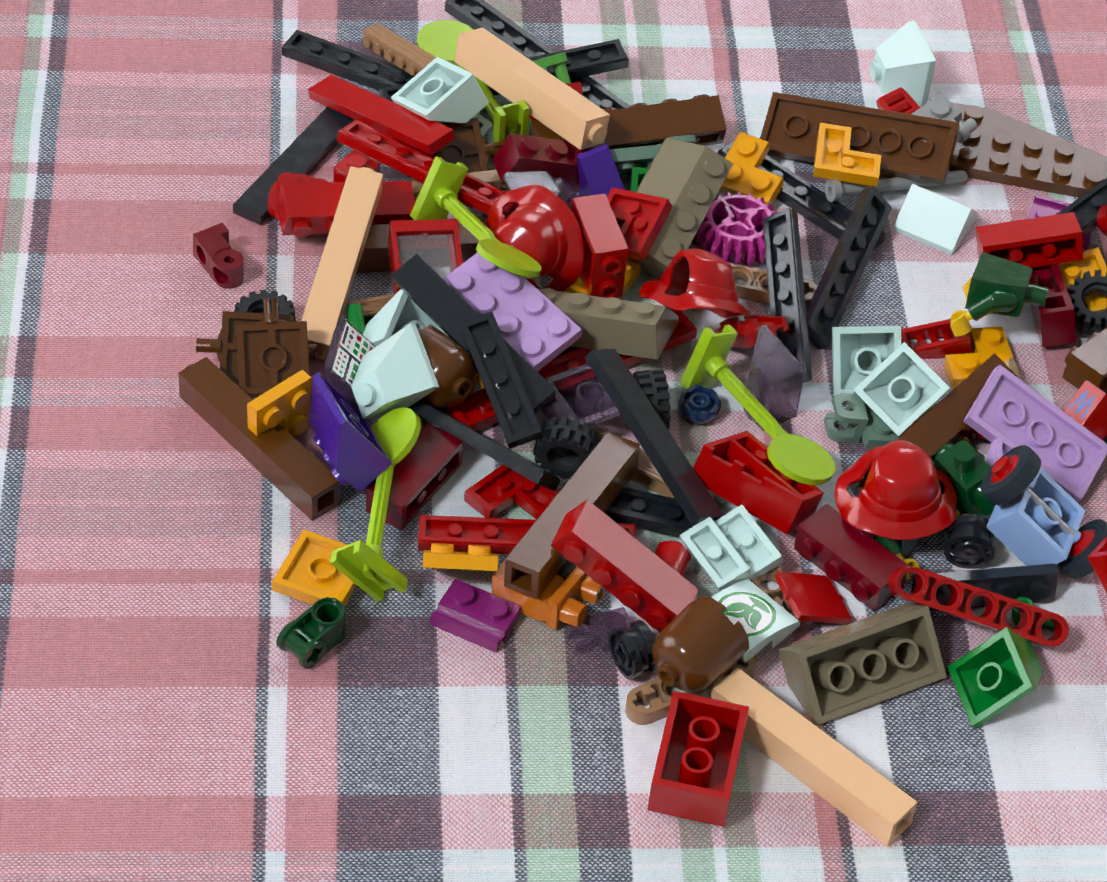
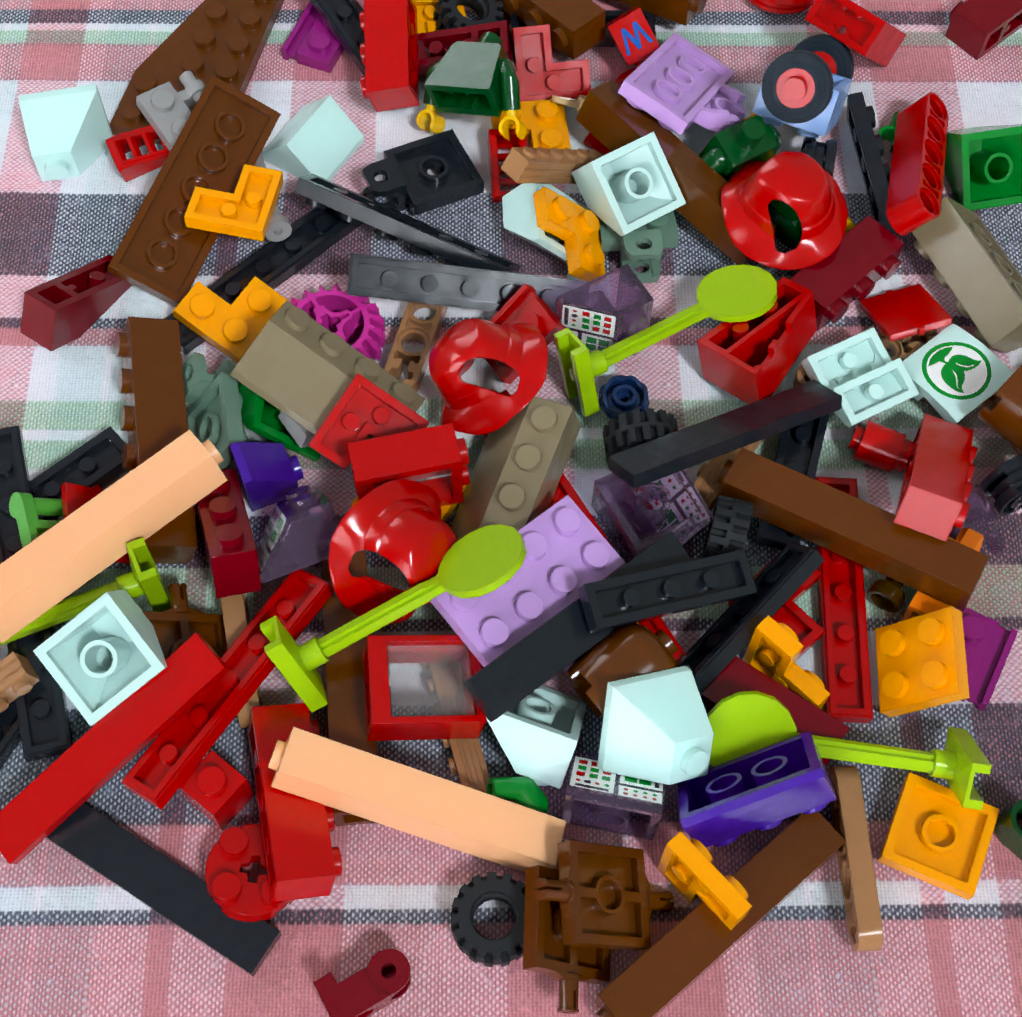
camera: 85 degrees left, 15 degrees up
(252, 522) = (856, 861): none -> medium nougat beam
(461, 473) = (774, 653): none -> light orange plate
(742, 83) = (70, 304): none -> dark red slope
(863, 353) = (577, 228): none -> light orange plate
(899, 270) = (407, 178): none -> black plate
(909, 328) = (545, 164): none -> medium nougat piece
(1037, 352) = (537, 72): none -> plate

